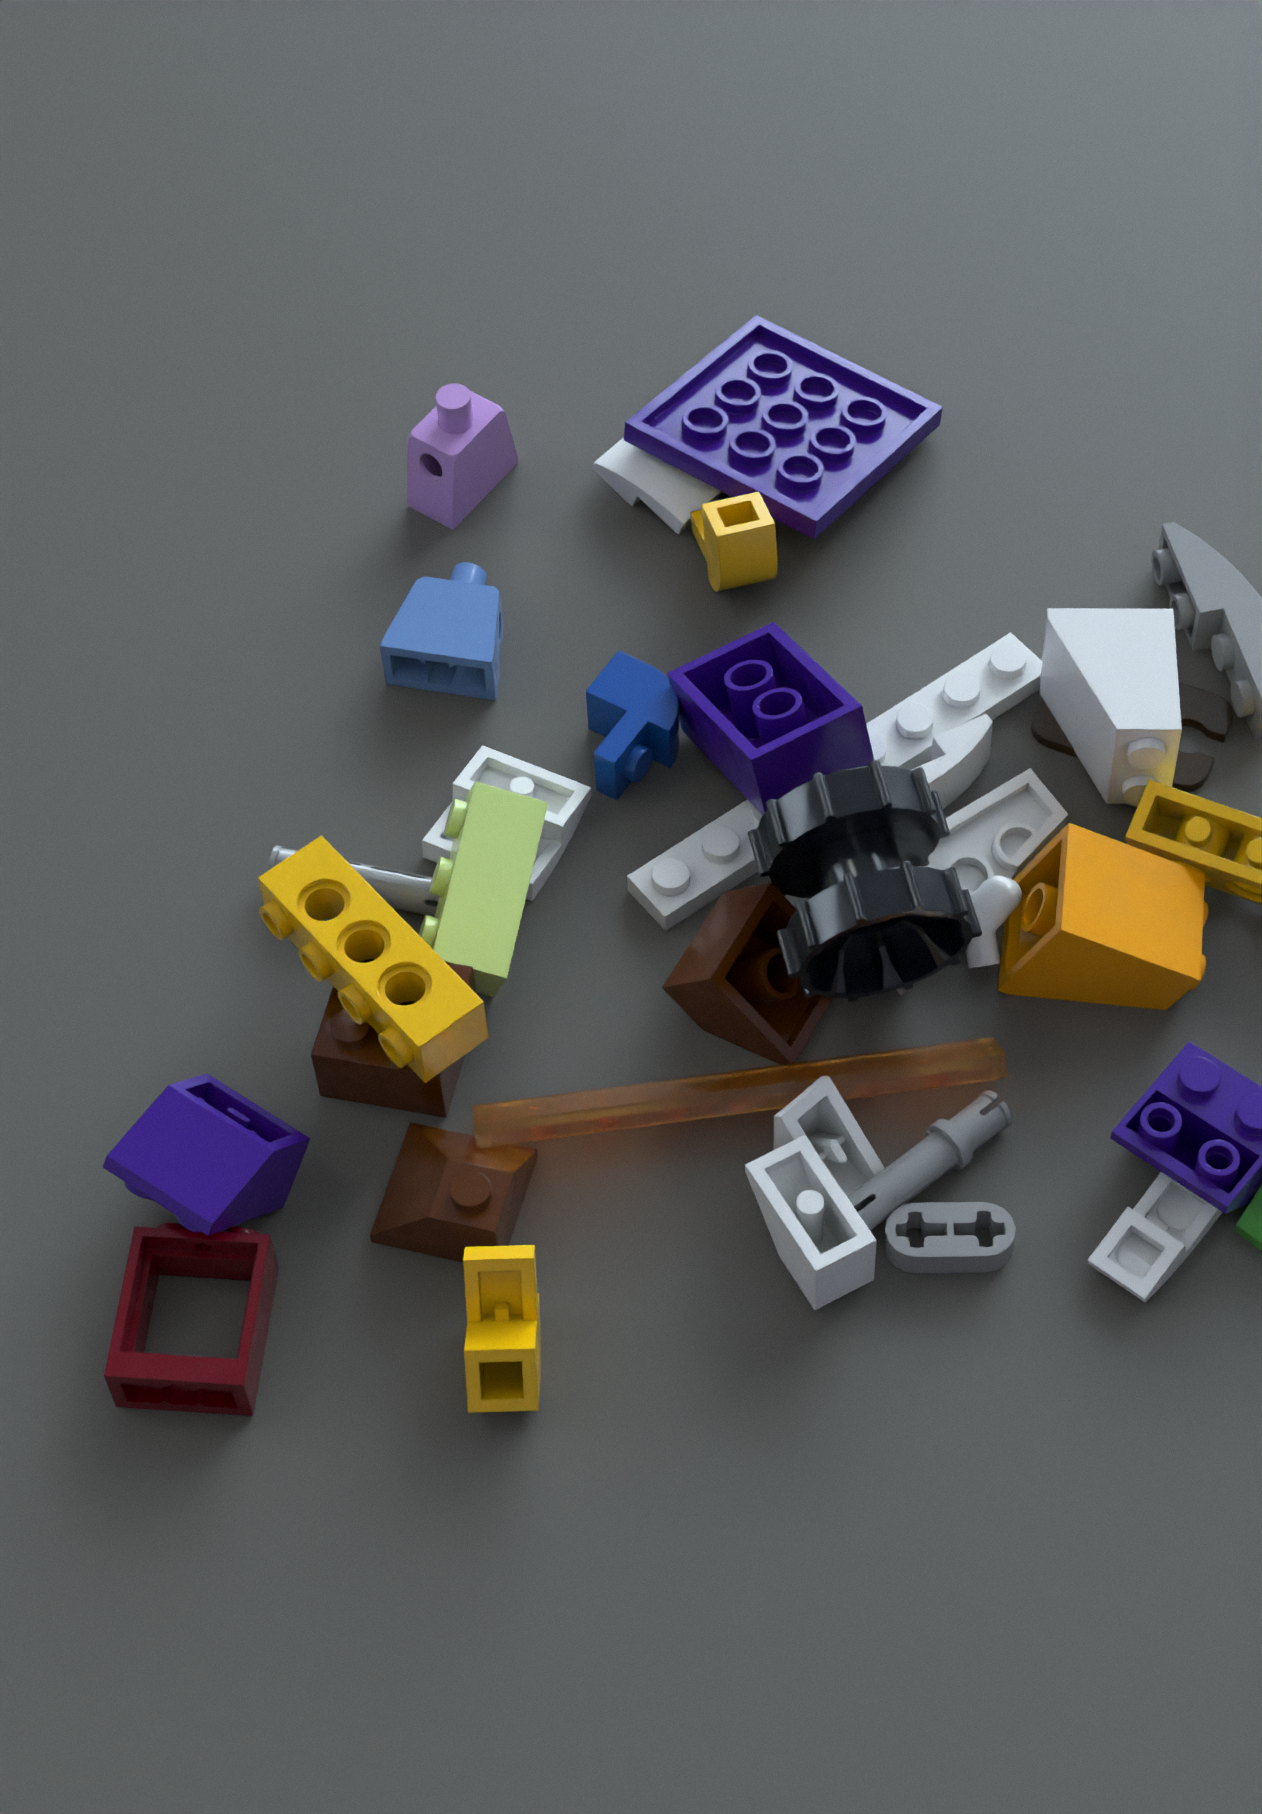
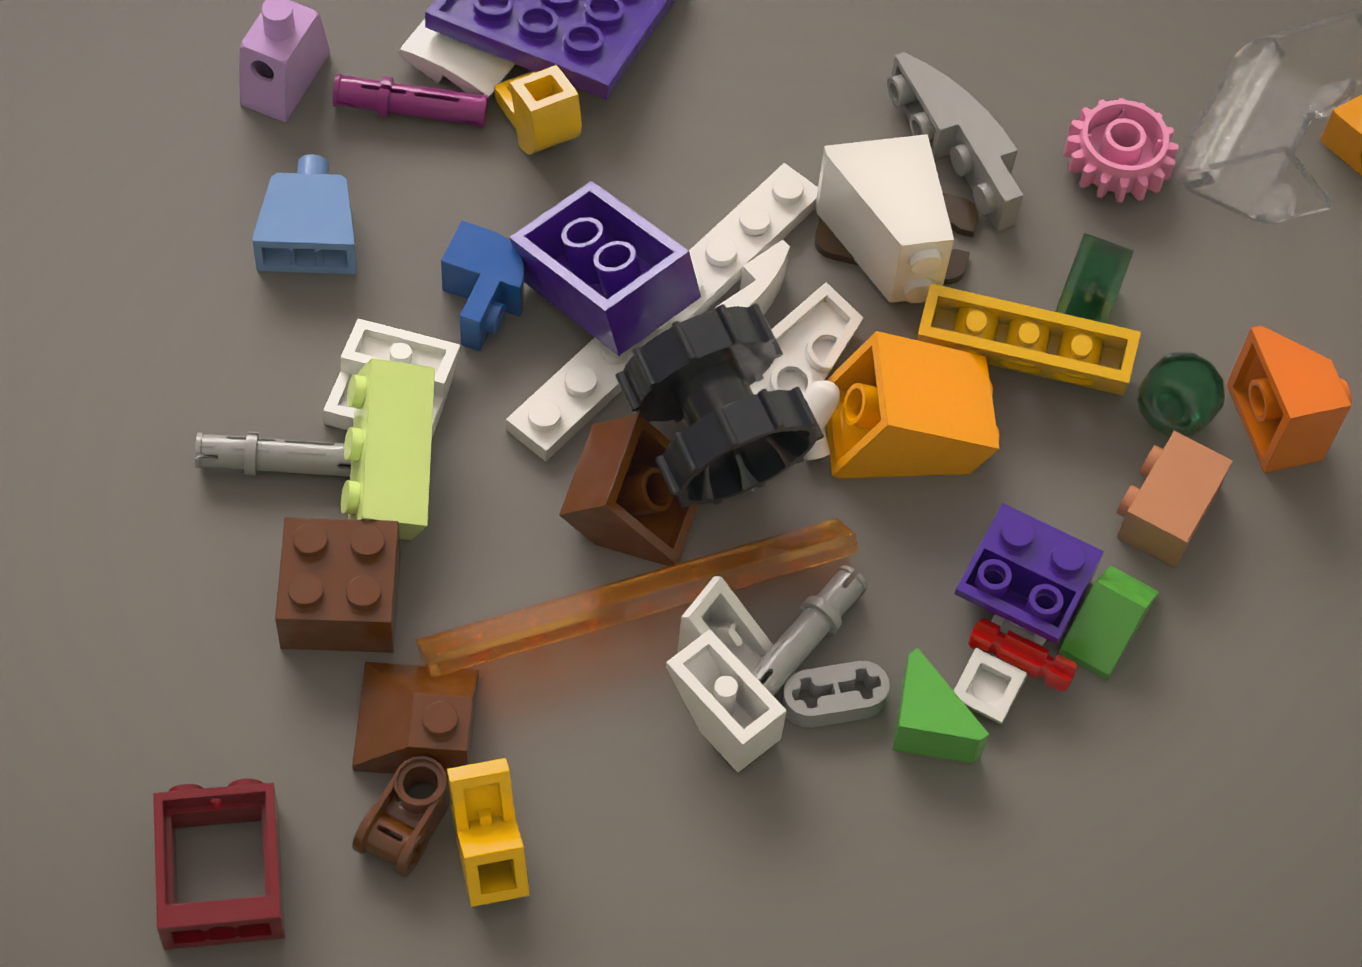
camera: 20 degrees left, 5 degrees up
(209, 1156) = (204, 720): dark purple slope -> none
(323, 885) = (260, 468): yellow brick -> none
(405, 1307) = (401, 825): none -> reddish brown piece
(572, 513) = (410, 100): none -> magenta pin
(1060, 1281) = (933, 717): none -> bright green slope
(1185, 1222) = (1023, 654): none -> red axle

